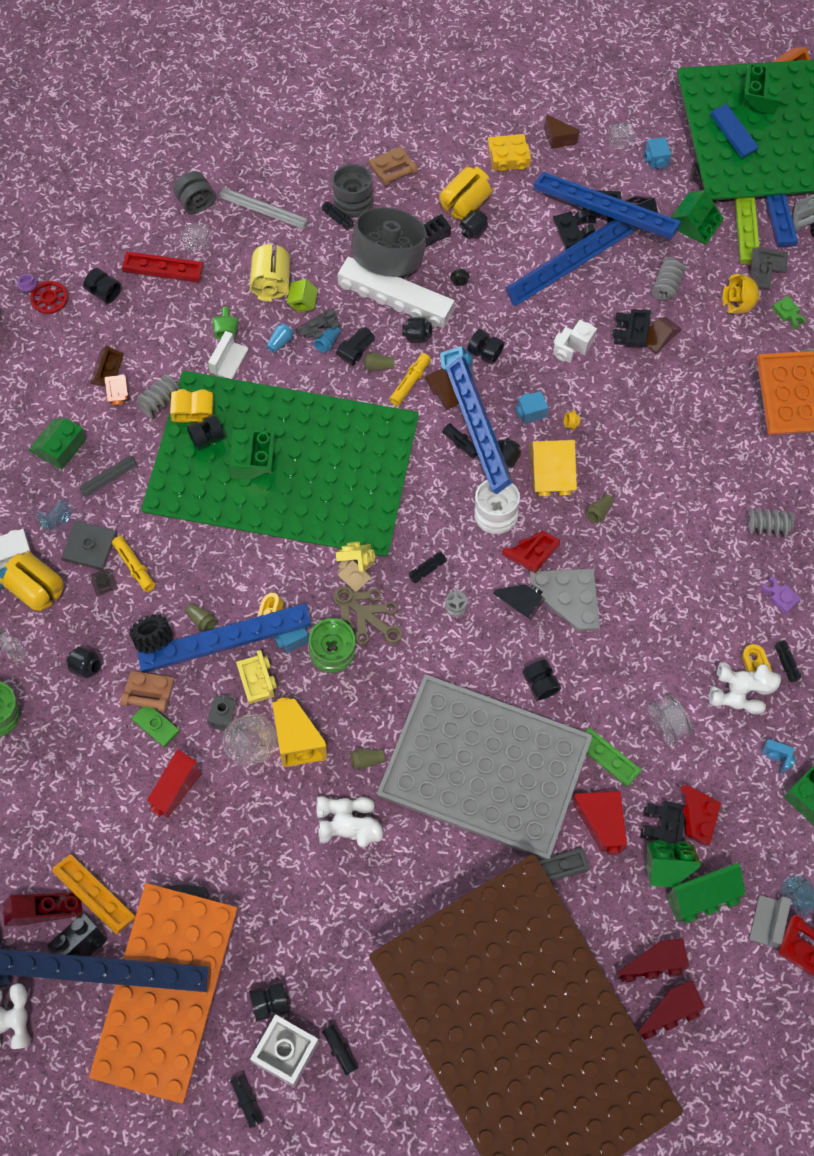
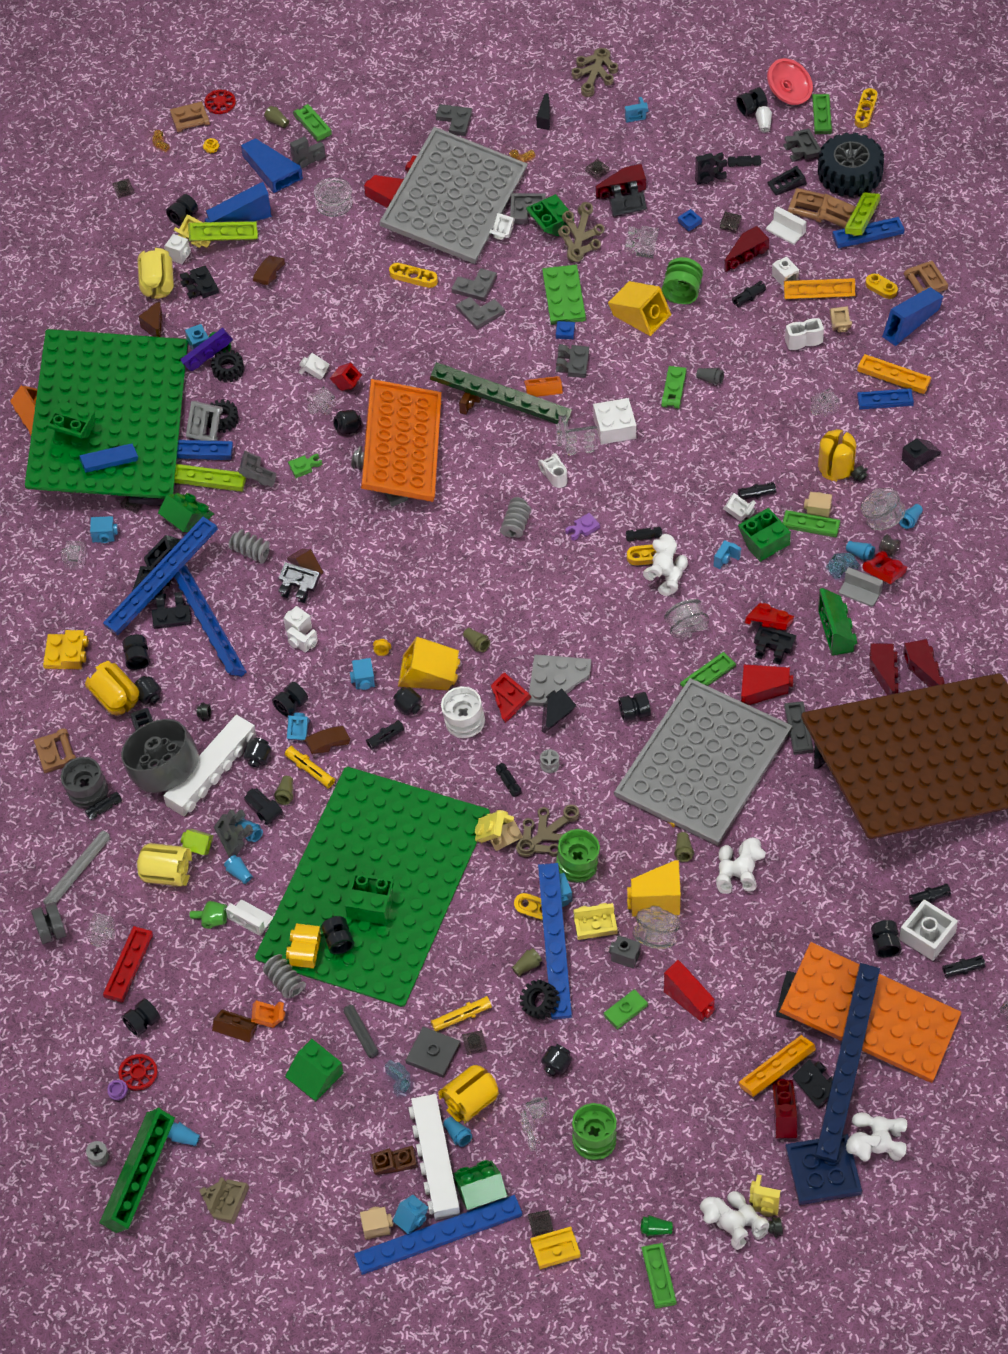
camera: 75 degrees left, 10 degrees down
(148, 686) = (588, 1007): nougat plate -> none
(479, 425) = (382, 708): plate -> none
(516, 206) = (136, 652): none -> black wheel
(559, 133) = (55, 605): reddish brown slope -> none
(670, 863) = (810, 639): green slope -> none
(741, 290) = (278, 492): yellow cylinder -> none

